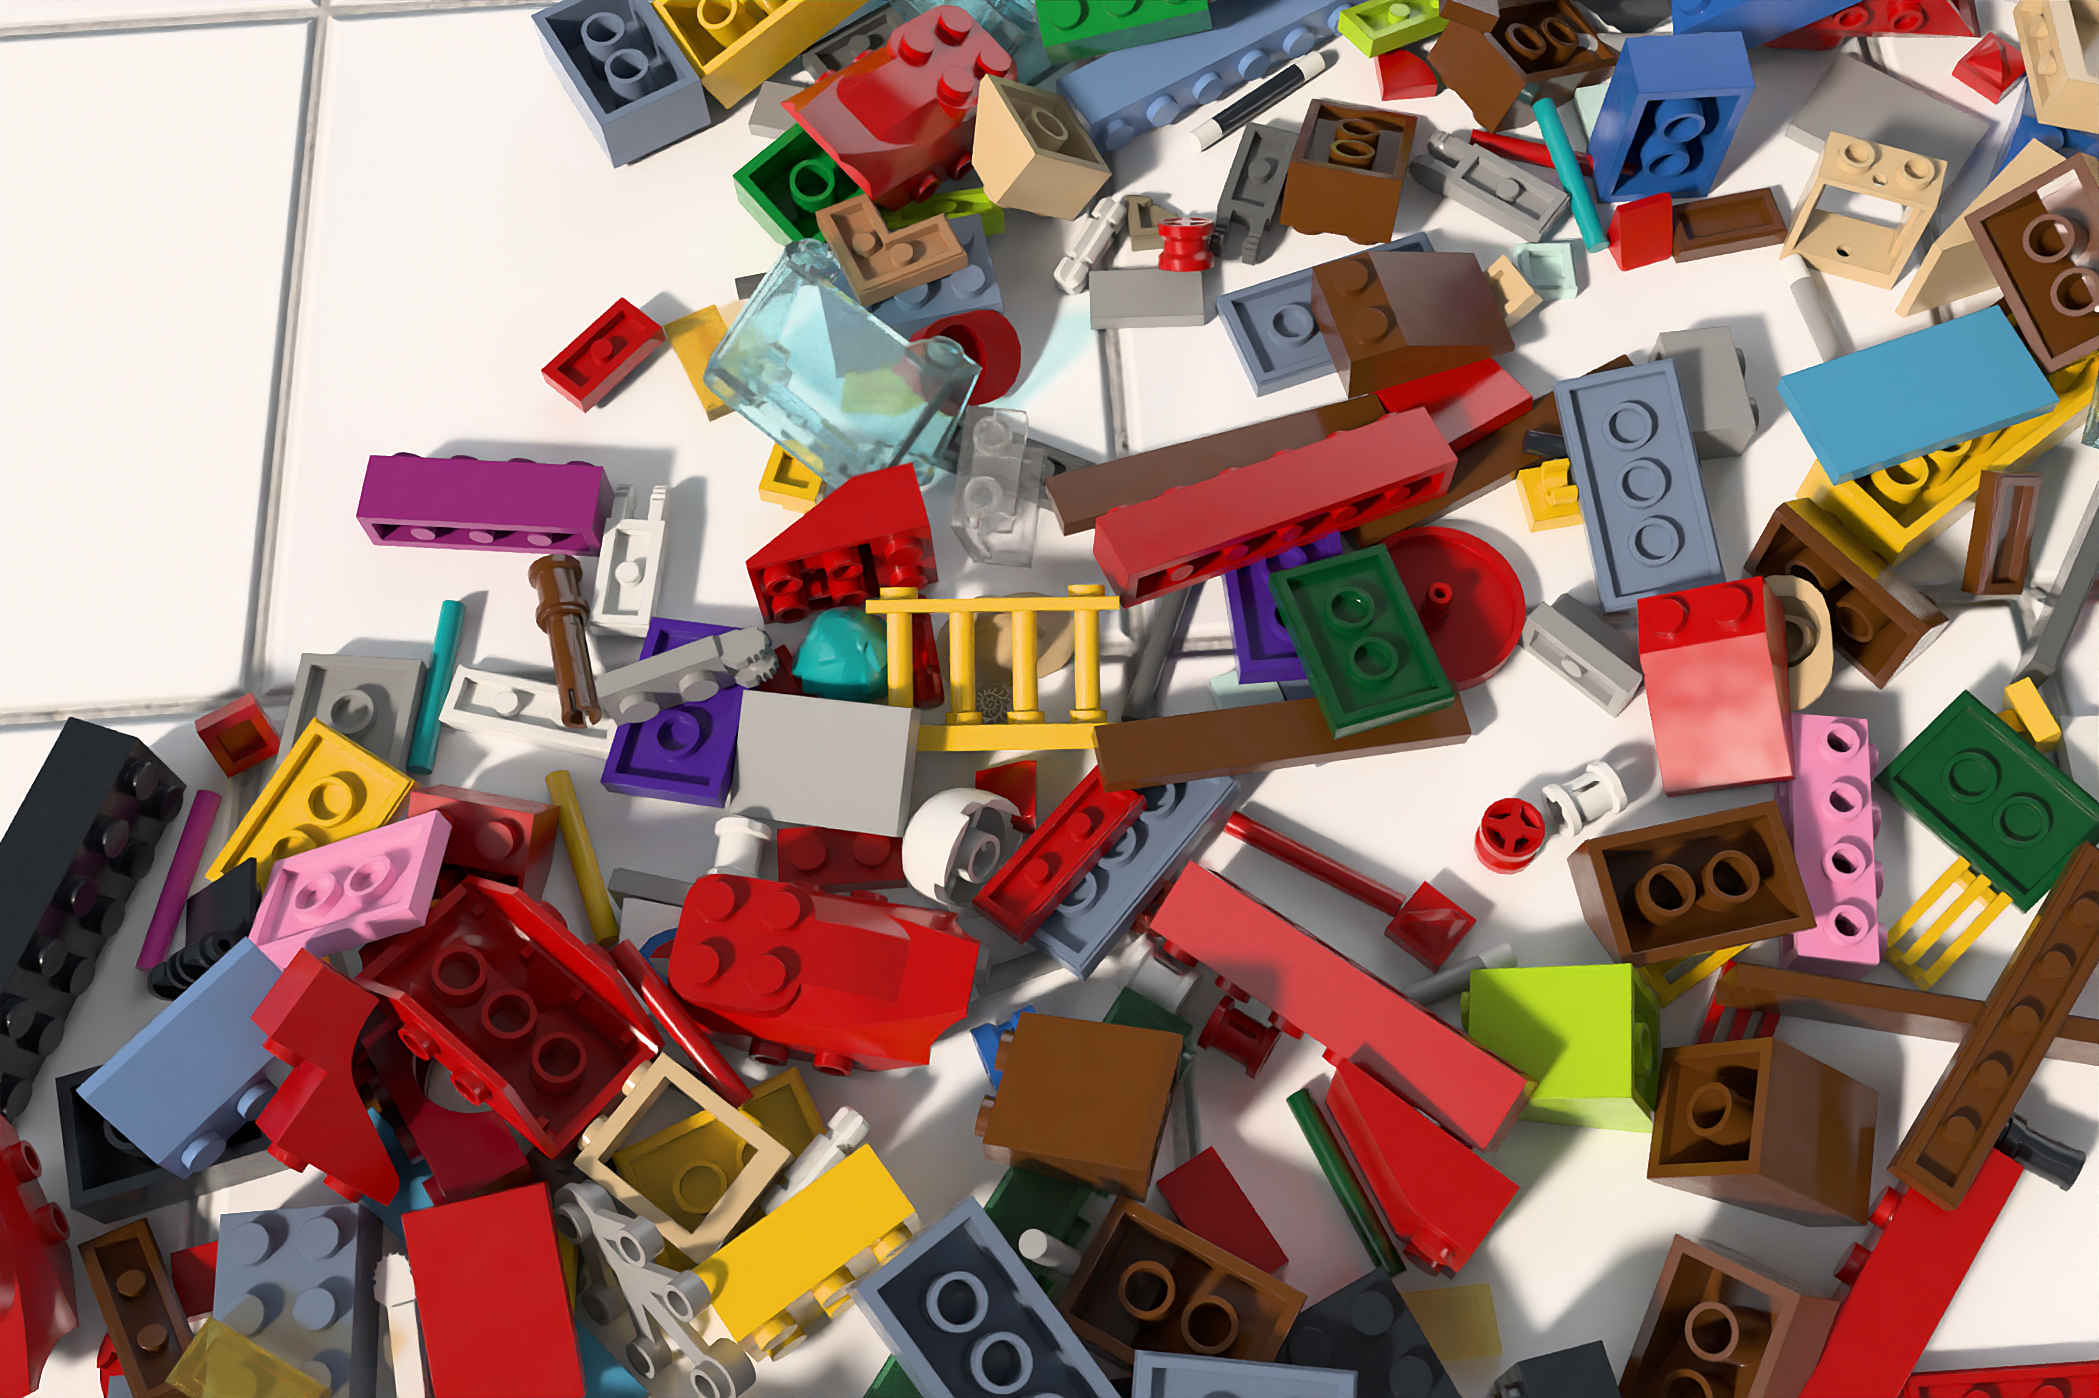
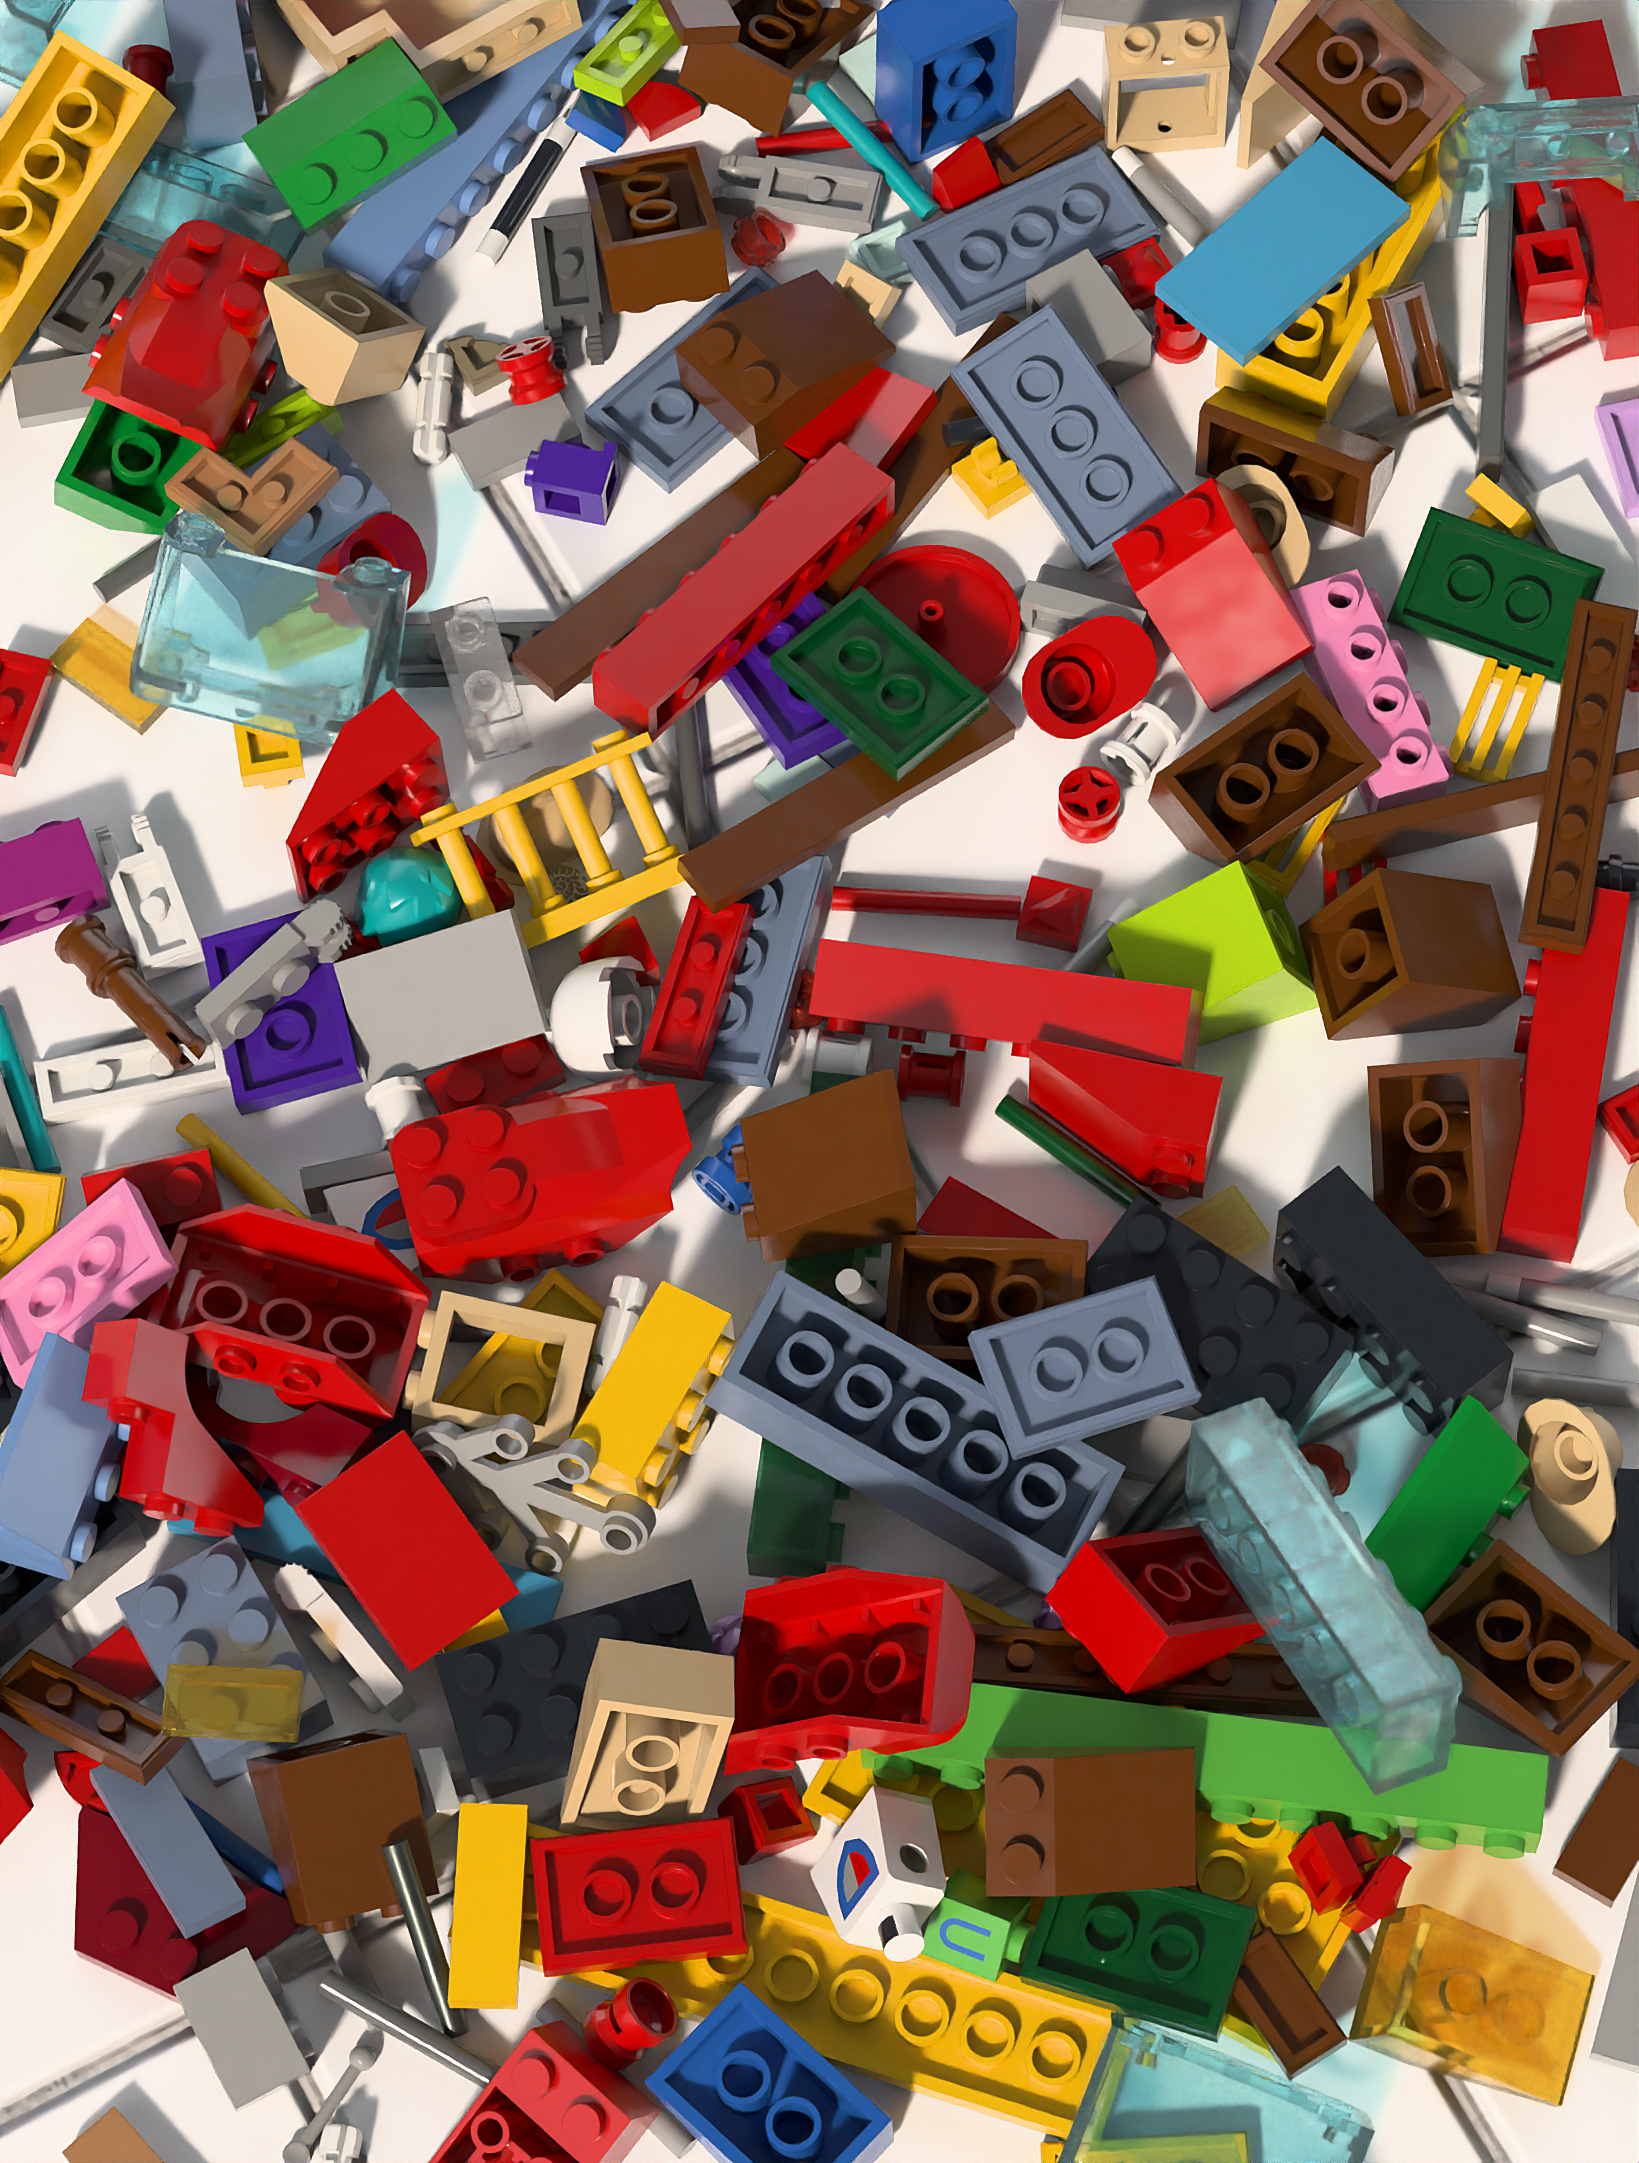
camera: 25 degrees left, 0 degrees up
(680, 1025) = (442, 1264): red bar -> none
(1178, 351) = (573, 480): none -> dark purple brick
(1344, 64) = (597, 120): none -> tile
(1434, 211) = (757, 240): none -> clear red plate
(1561, 715) = (1088, 676): none -> red piece
(1626, 298) = (983, 253): none -> sand blue tile
(1766, 366) = (1138, 271): none -> red tile
(1778, 436) = (1175, 337): none -> red bush

